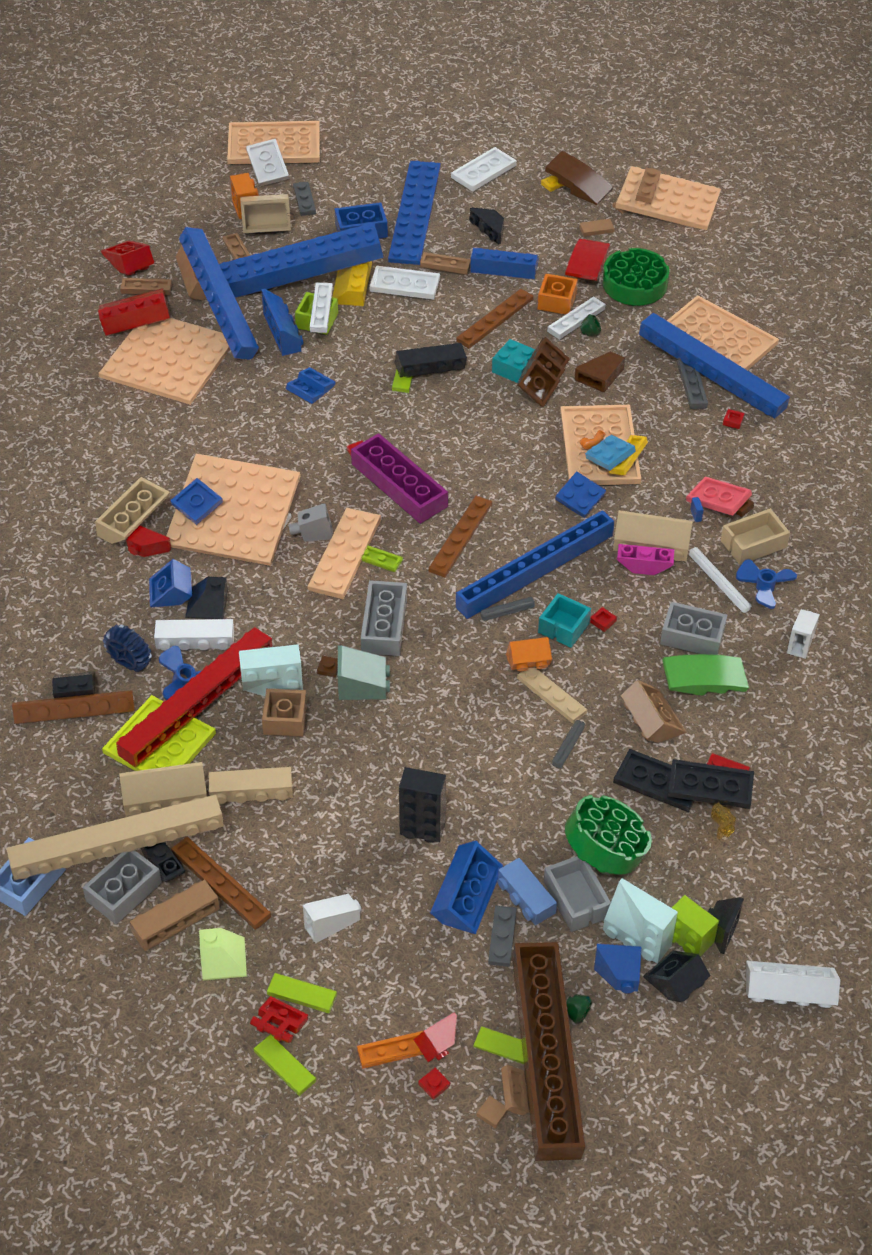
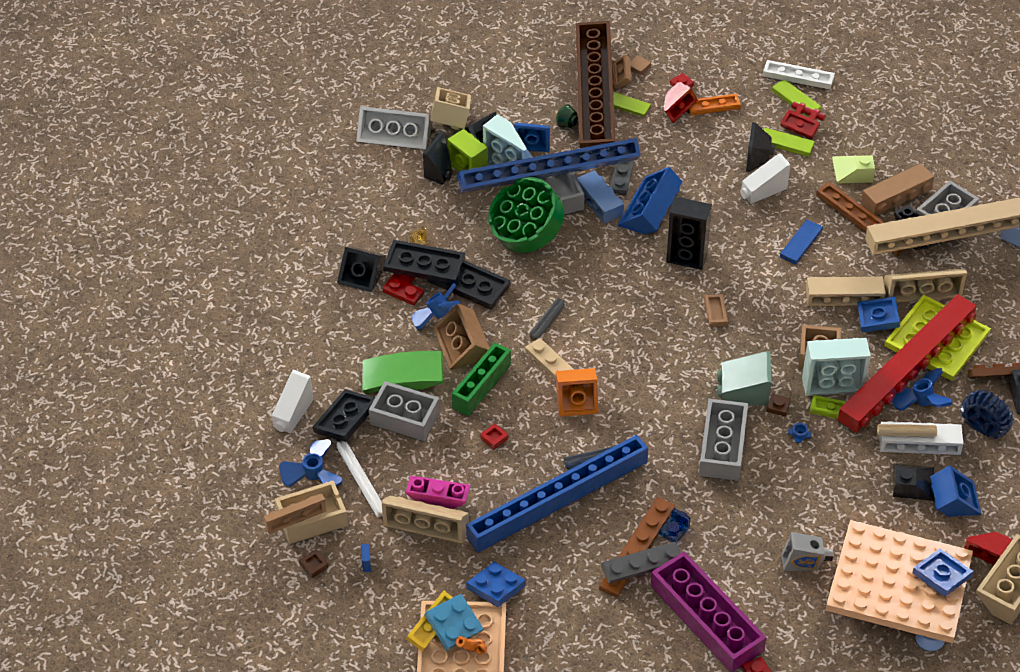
camera: 175 degrees left, 0 degrees up
(208, 623) = (907, 430): none -> tan axle
(218, 754) = (878, 314): none -> blue plate
(279, 1102) = (798, 74): none -> white plate
(293, 852) = (801, 242): none -> blue tile
(312, 636) = (799, 427): none -> blue plate
(337, 962) = (759, 148): none -> black slope
(344, 553) = (767, 531): light nougat plate -> none
(382, 559) = (735, 527): lime tile -> none
(390, 763) = (715, 310): none -> medium nougat tile
(427, 550) = (676, 526): none -> clear blue bracket
(456, 514) = (639, 562): none -> dark grey plate
(564, 620) = (532, 430): teal piece -> none
(588, 881) = (549, 165): none -> blue brick
(624, 664) = (481, 379): none -> green brick
(683, 734) = (437, 306): none -> blue piece
(720, 495) = (336, 574): coral tile -> none
(726, 986) = (450, 108): none -> tan brick
(749, 626) = (344, 415): none -> black plate
(766, 510) = (294, 513): none -> medium nougat plate
(778, 788) = (360, 268): none -> black slope

